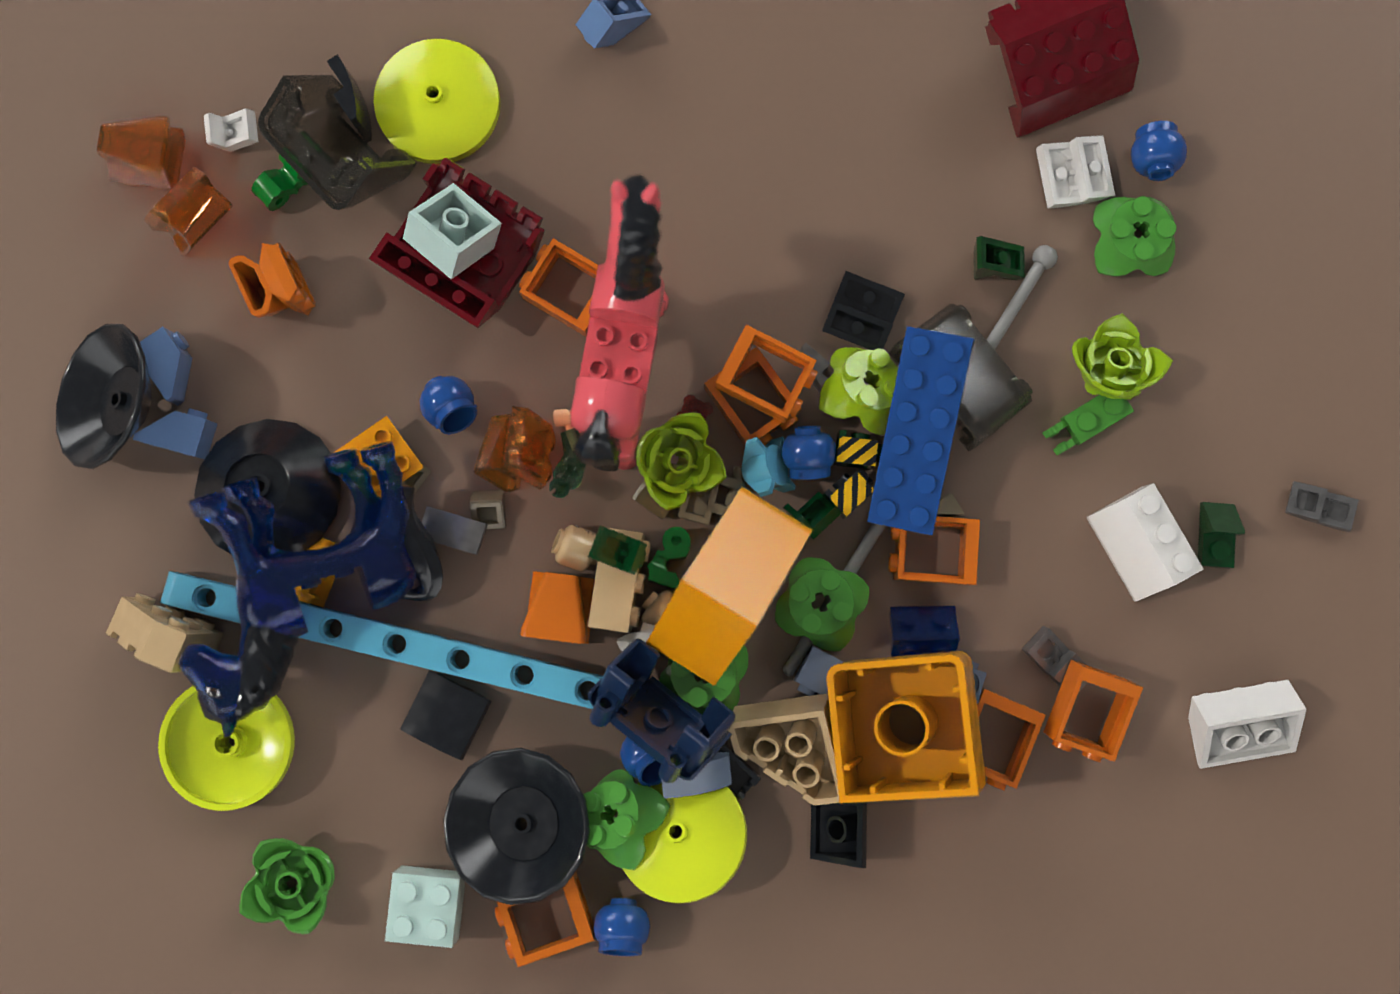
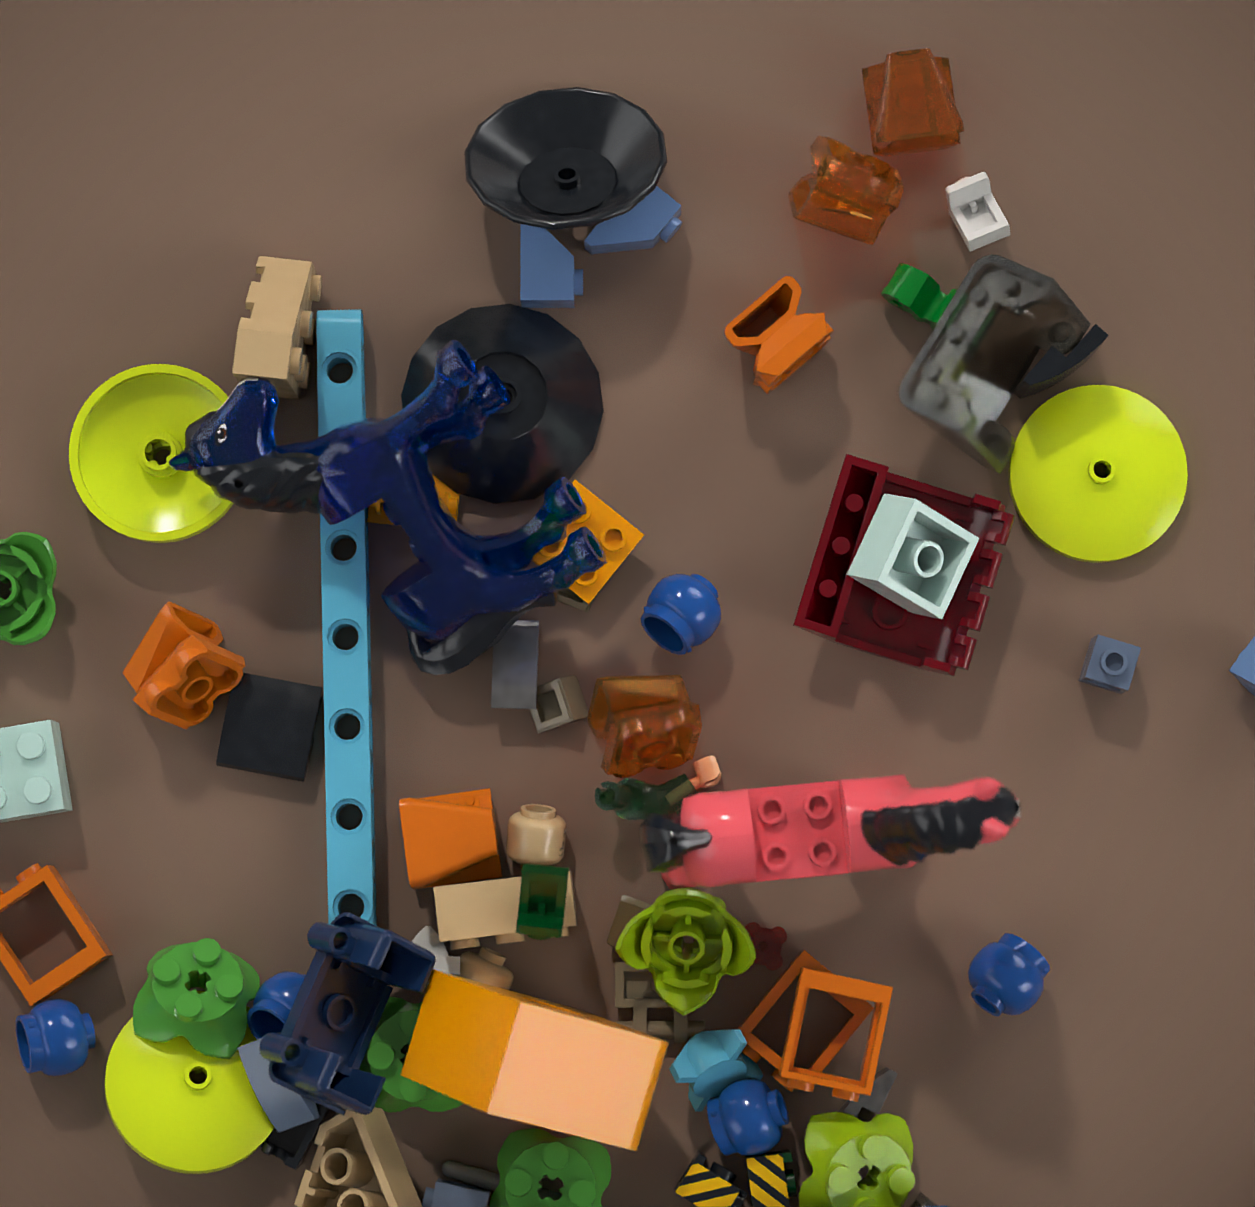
camera: 75 degrees right, 0 degrees up
(383, 766) = (182, 667): none -> orange piece
(486, 833) = (123, 829): black dish -> none
(533, 280) = (882, 676): orange window -> none
(567, 126) = (1109, 664): none -> sand blue brick
(676, 547) = (575, 971): green leg -> none
(759, 251) = (1007, 976): none -> blue piece
(815, 514) = (666, 1146): dark green bracket -> none
(863, 312) = (966, 1141): black slope -> none

